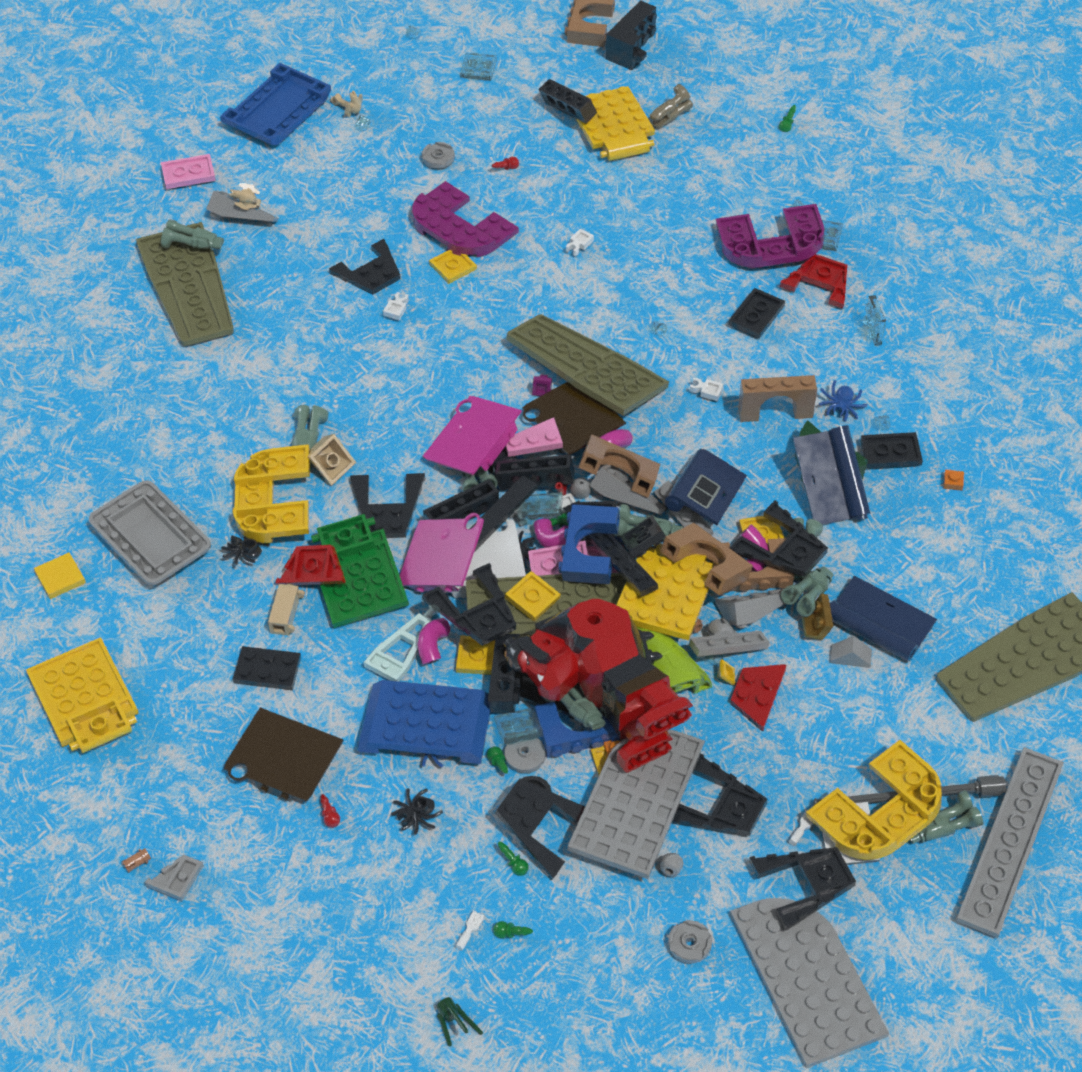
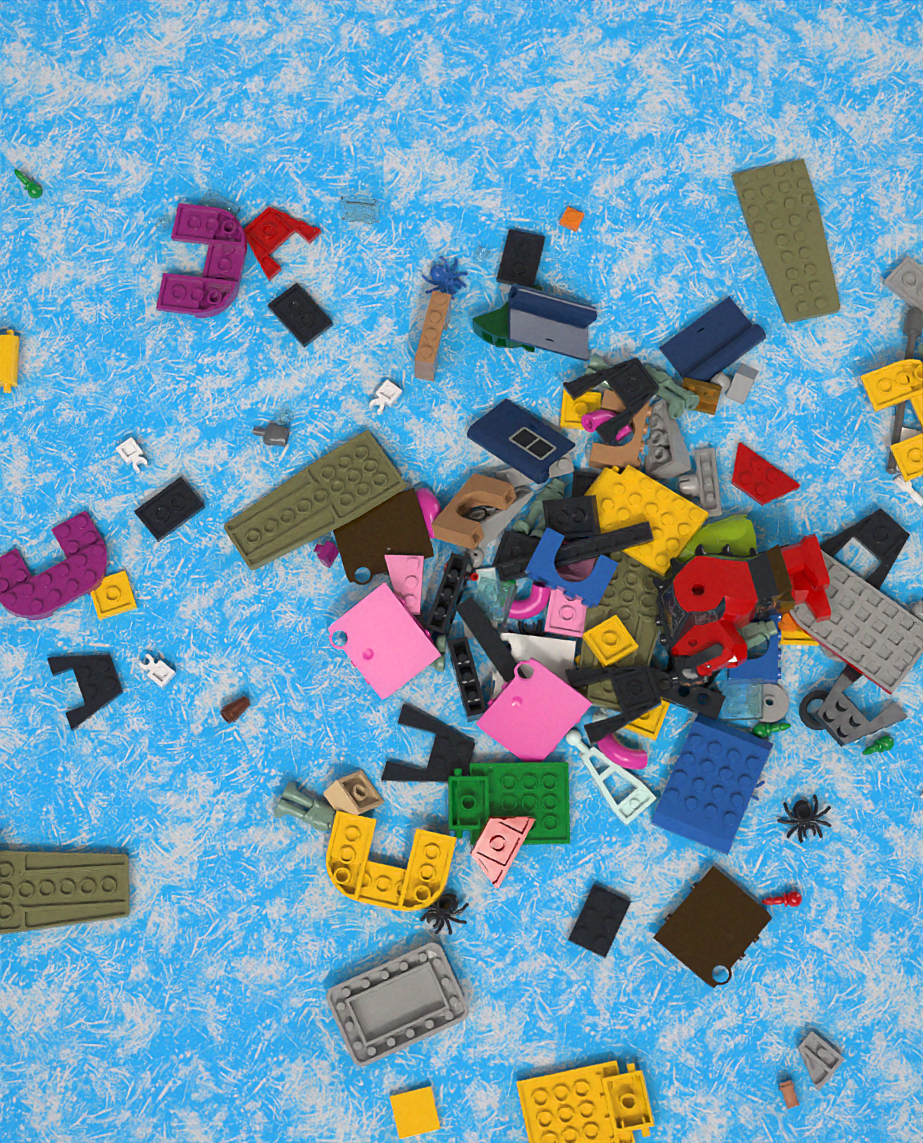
camera: 75 degrees left, 20 degrees up
(284, 609) = (535, 886): tan brick -> none
(380, 363) = (235, 709): none -> copper cone
(541, 277) = (169, 509): none -> black plate
(638, 326) = (273, 434): none -> dark grey piece
(692, 540) = (632, 449): medium nougat arch -> none
(726, 672) = (732, 497): yellow slope -> none
(840, 632) = (721, 380): none -> light grey piece

